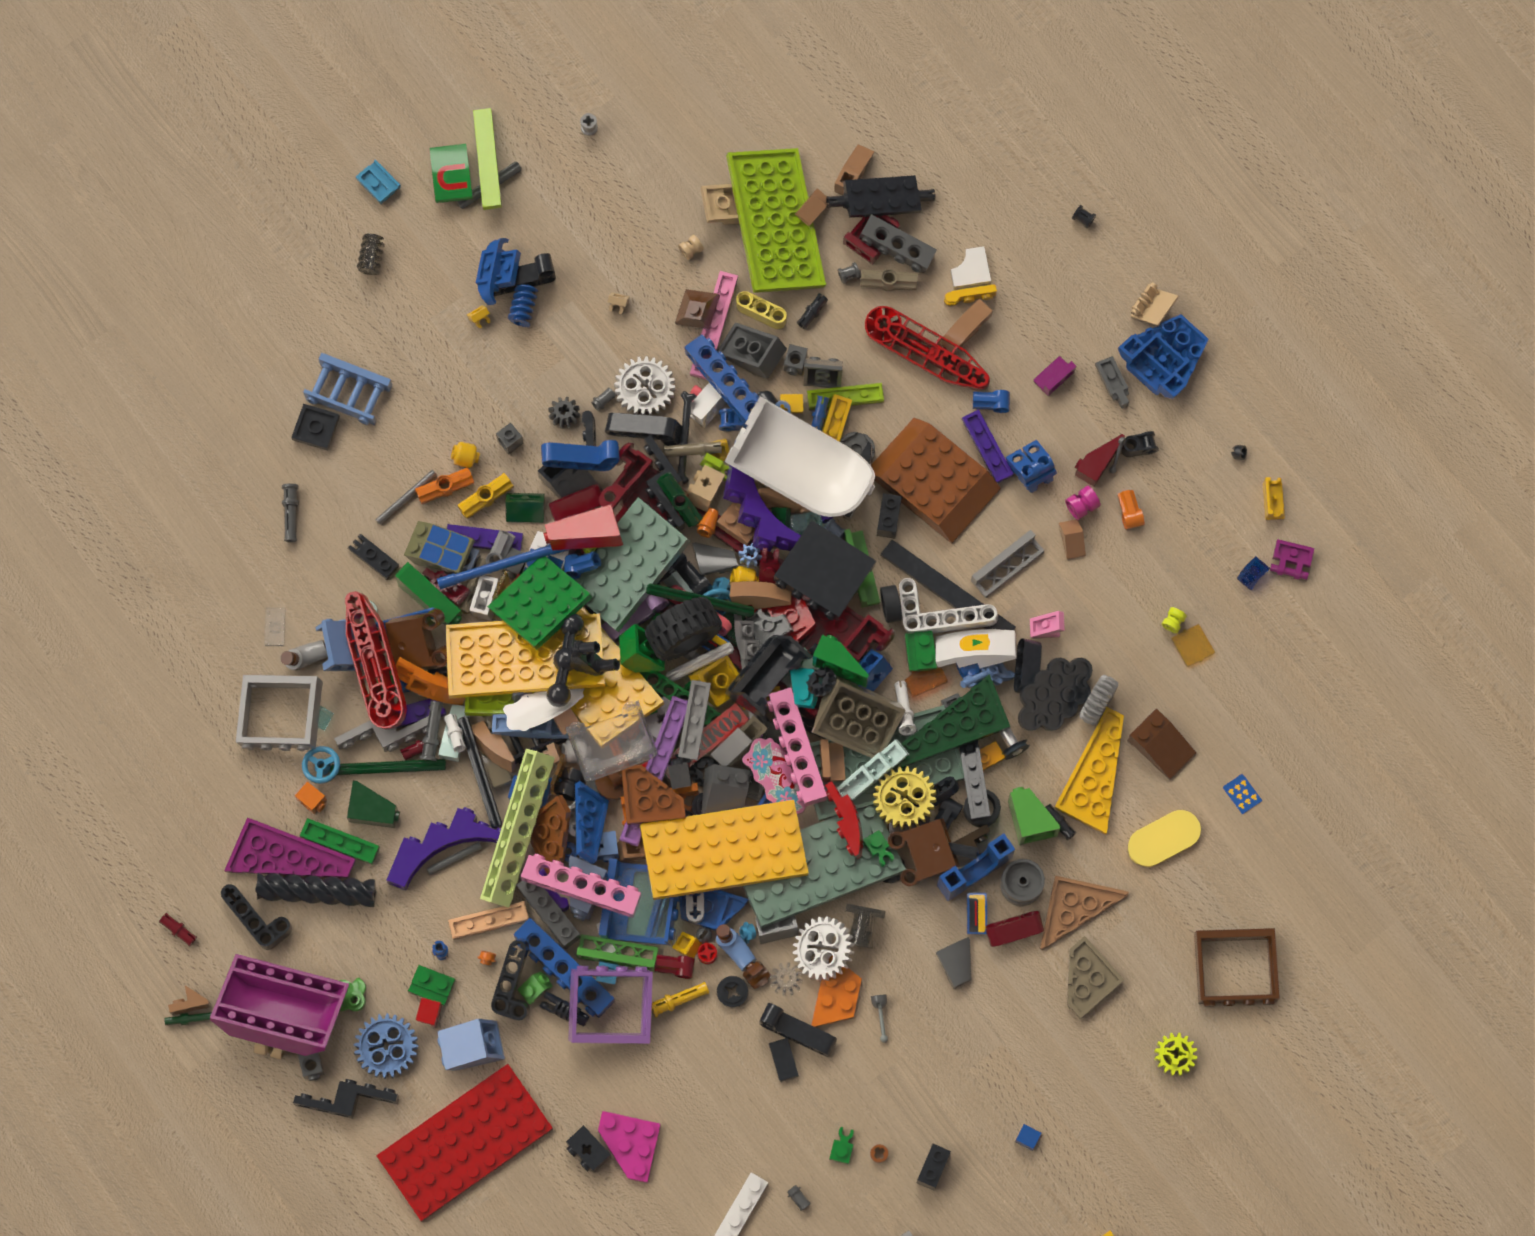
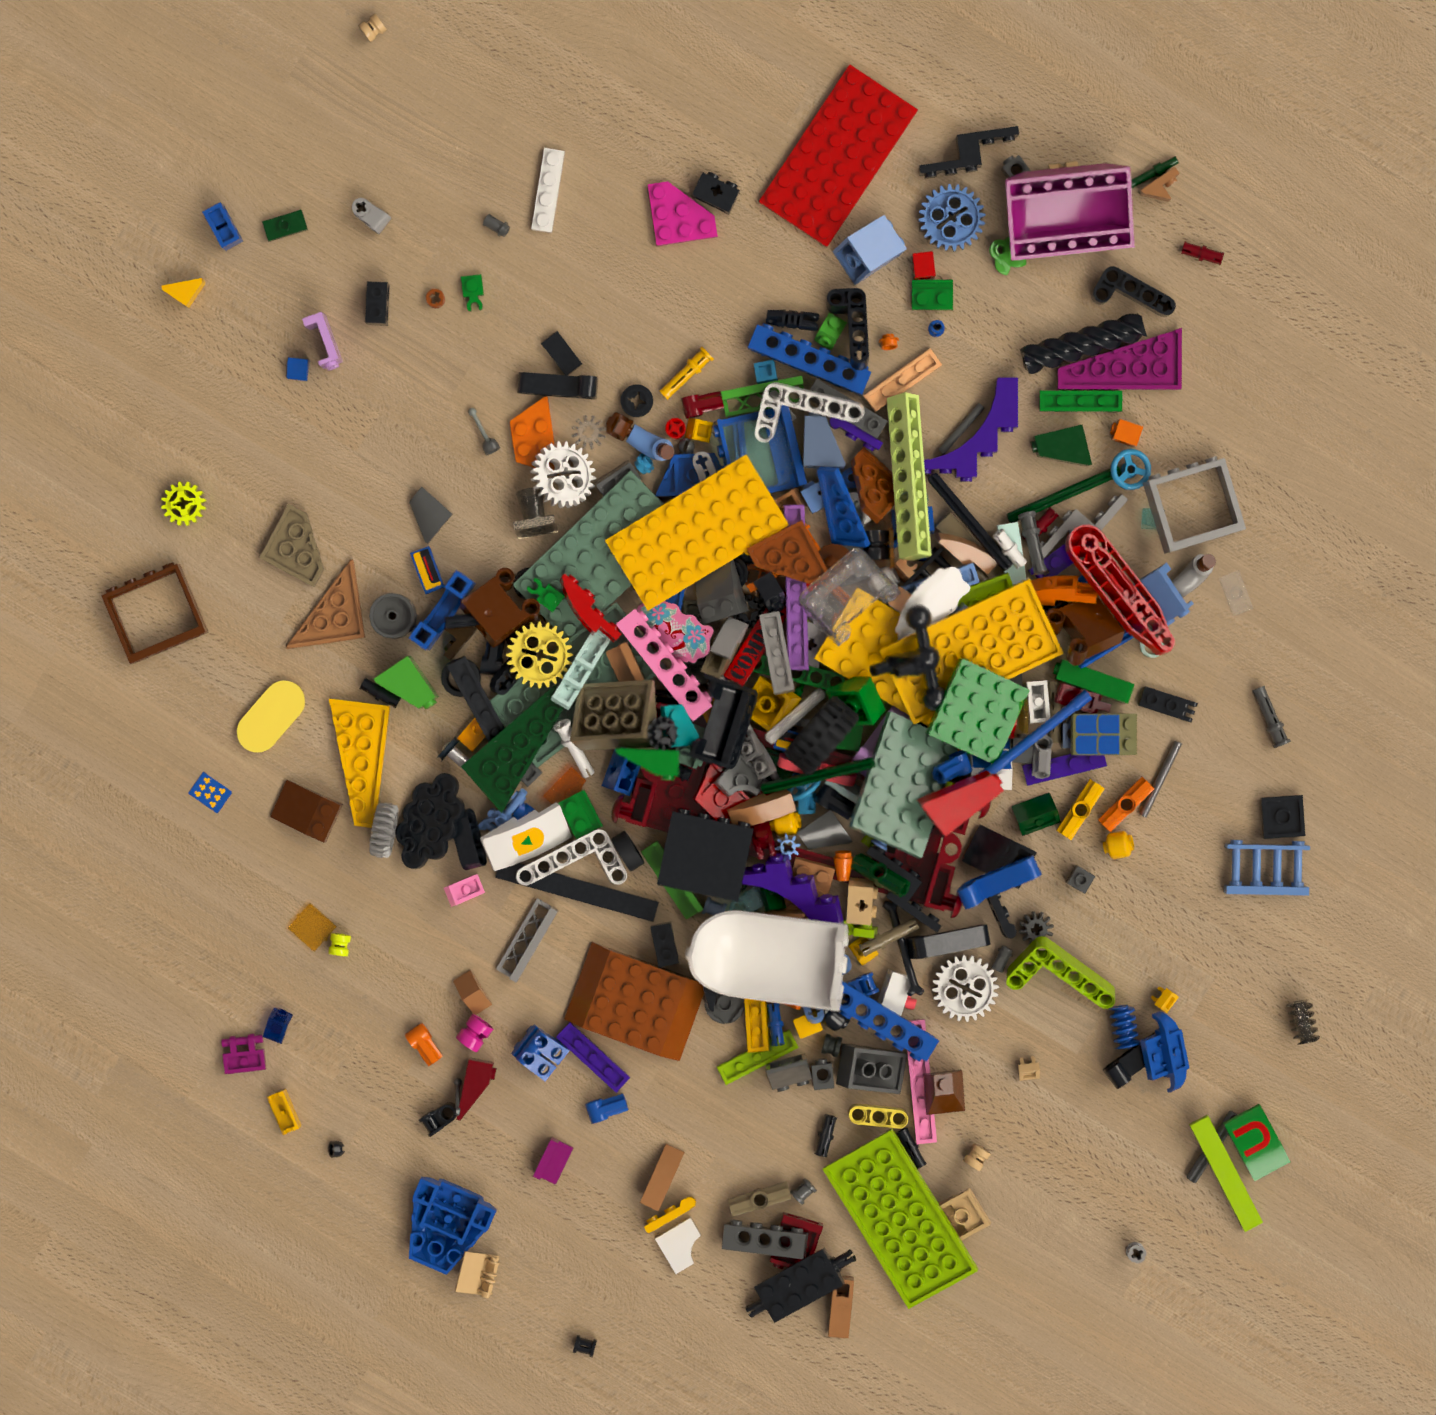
camera: 160 degrees right, 15 degrees up
(378, 181) = (1328, 1105): dark azure plate -> none
(561, 382) = (1061, 969): none -> lime beam
(575, 502) = (985, 834): dark red beam -> none
(585, 924) = (803, 404): none -> white beam
(621, 971) = (735, 308): medium lavender window -> none
(625, 907) = (874, 430): bright pink brick -> none
(743, 274) = (911, 1147): none -> black pin
(778, 381) = (831, 1045): none -> pearl dark grey wheel
(812, 207) = (867, 1248): medium nougat slope -> none
(935, 355) = (681, 1136): red beam -> none
(991, 1168) = (320, 321): none -> lavender panel
(1014, 928) = (384, 567): dark red beam -> none
(1113, 380) = (490, 1177): dark grey hinge -> none

